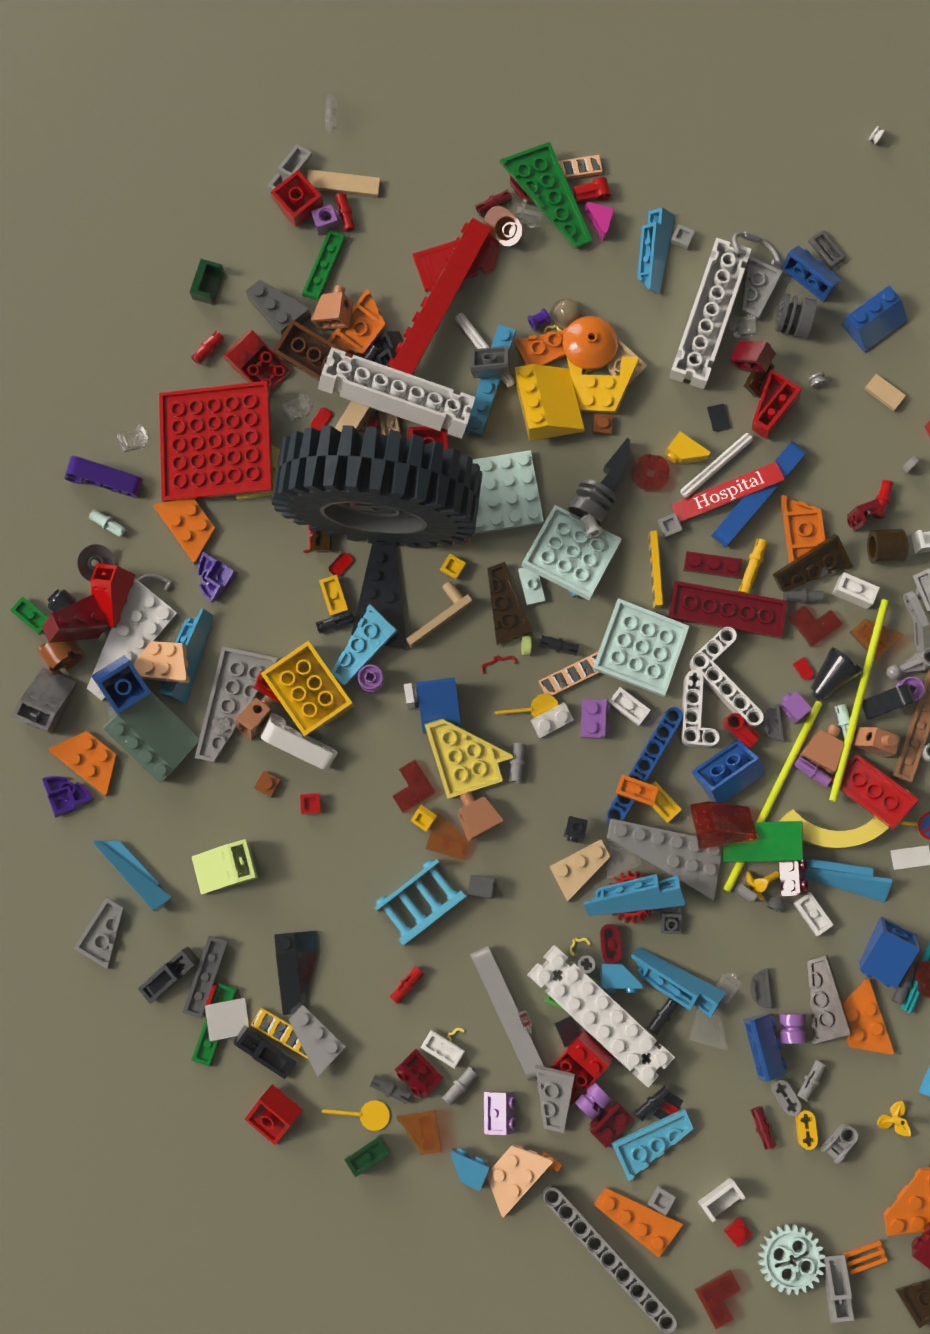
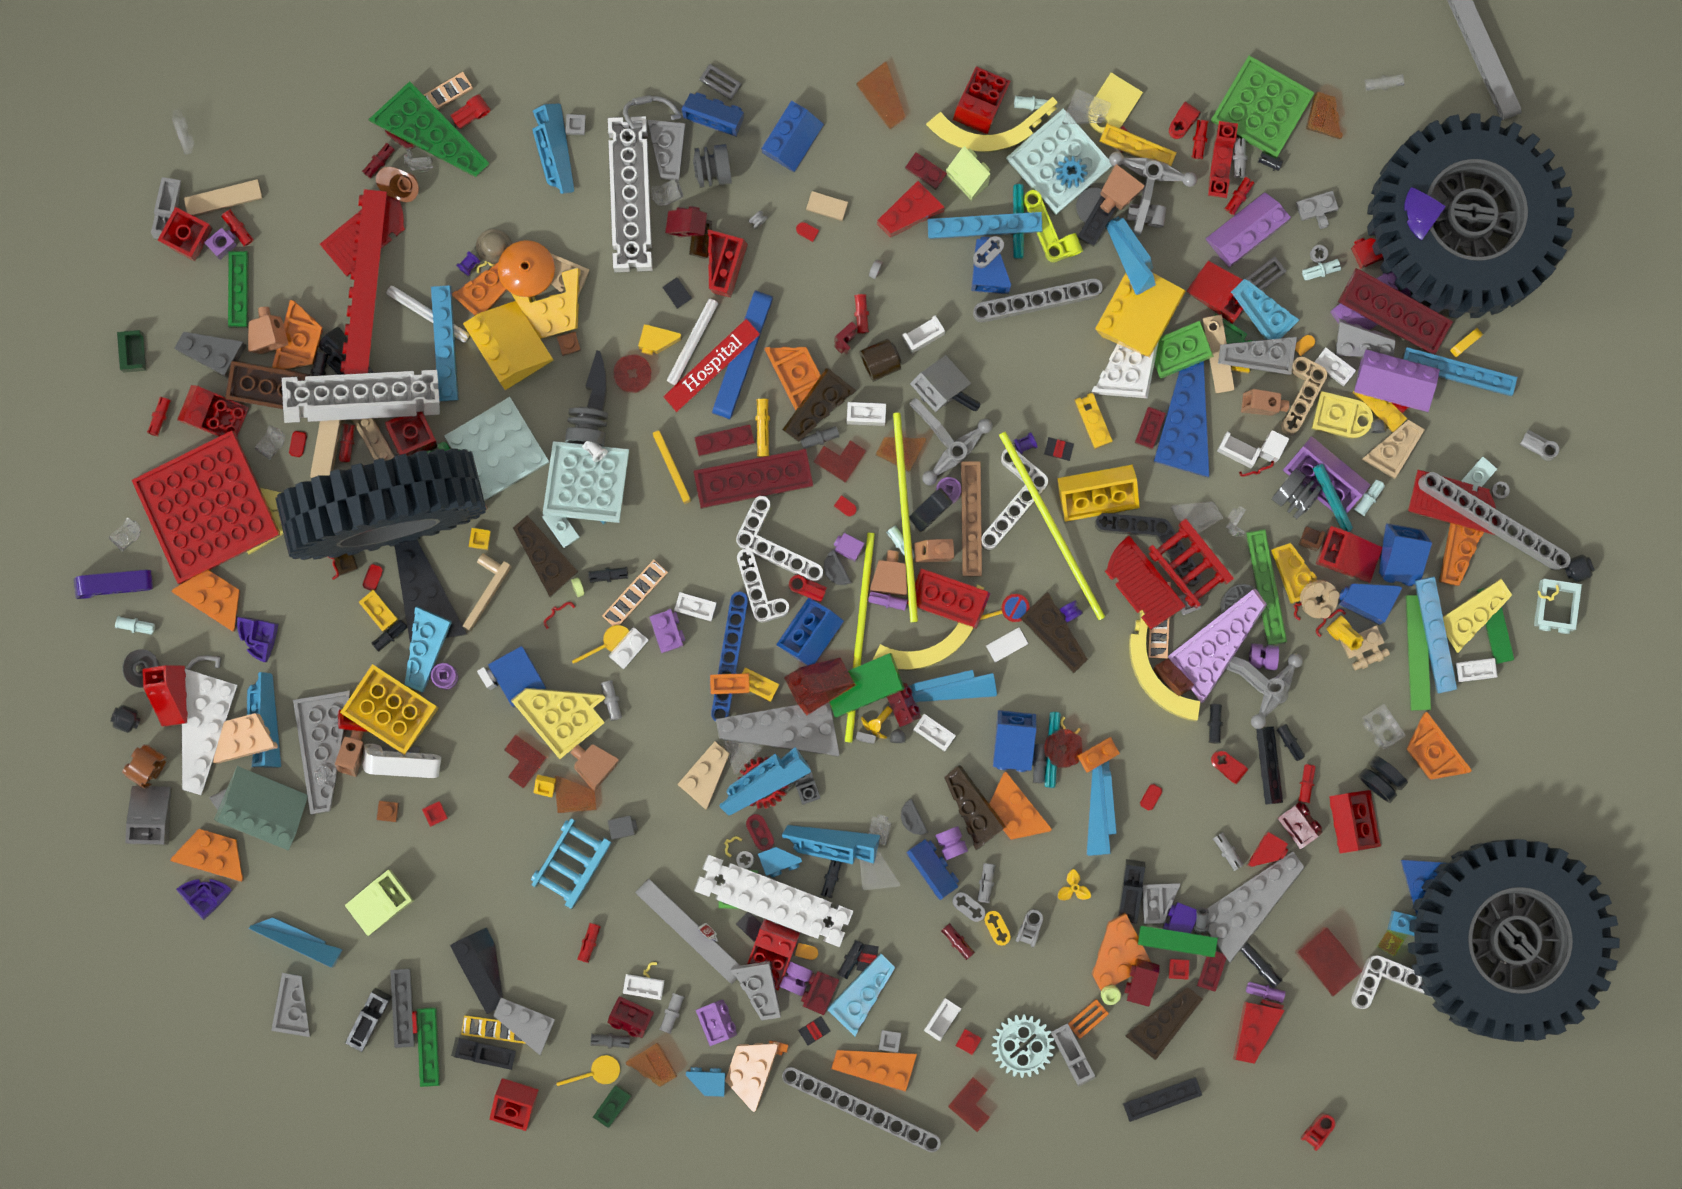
camera: 20 degrees left, 5 degrees up
(29, 615) = (105, 743): green plate -> none
(76, 622) = (148, 732): dark red wedge -> none
(121, 684) = (214, 773): blue slope -> none
(226, 1018) = (437, 1037): white sticker -> none
(490, 362) = (437, 327): dark grey slope -> none
(575, 829) = (688, 741): black bracket -> none
(590, 1159) = (814, 1030): none -> black piece
(600, 217) = (489, 137): dark pink slope -> none
(612, 1078) = (806, 951): none -> light orange piece
(640, 647) = (685, 547): light aqua plate -> none
(669, 525) = (669, 418): light grey plate -> none
(834, 674) = (874, 502): black cone -> none
(857, 408) = (807, 231): none -> red piece
(896, 1242) = (1110, 994): none -> yellowish green tile

